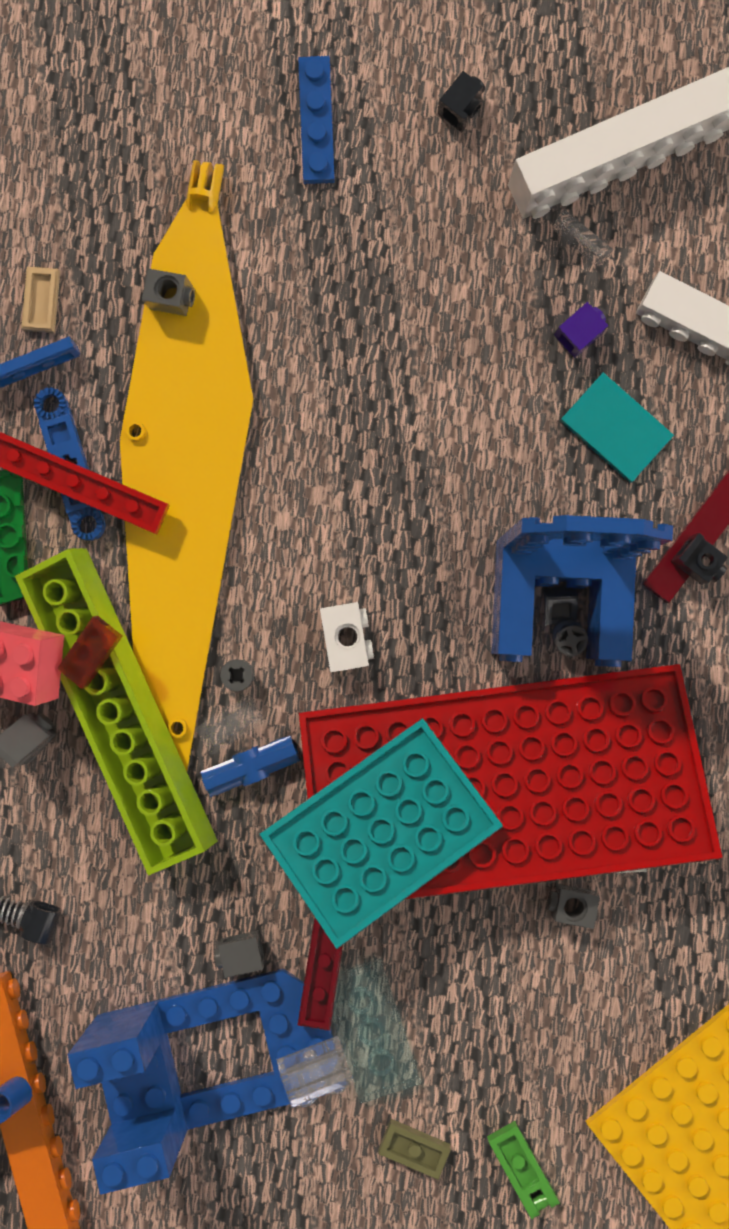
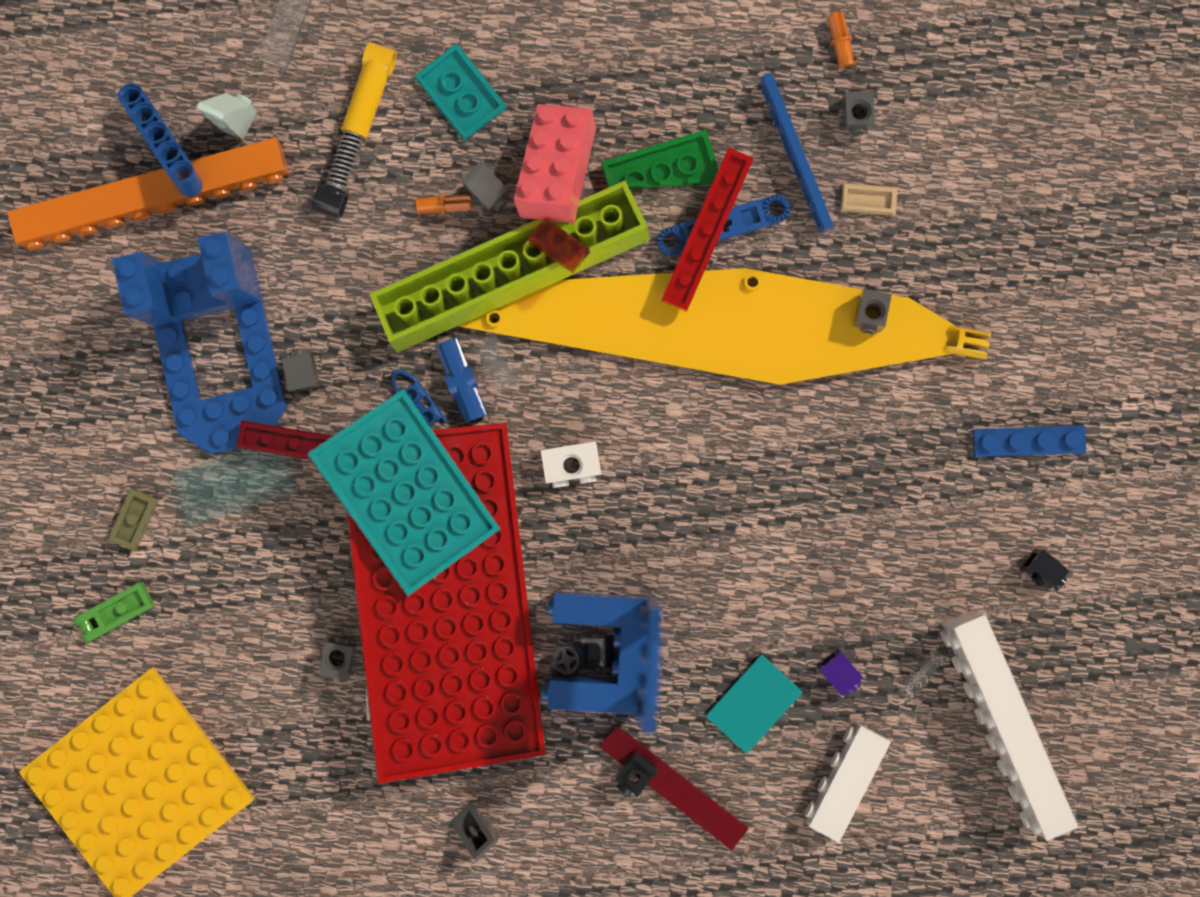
camera: 90 degrees right, 0 degrees up
(44, 788) = (443, 204): none -> orange axle
(245, 675) = (541, 374): dark grey wheel -> none
(265, 818) = (416, 393): none -> blue piece
(315, 1072) = (201, 435): clear brick -> none

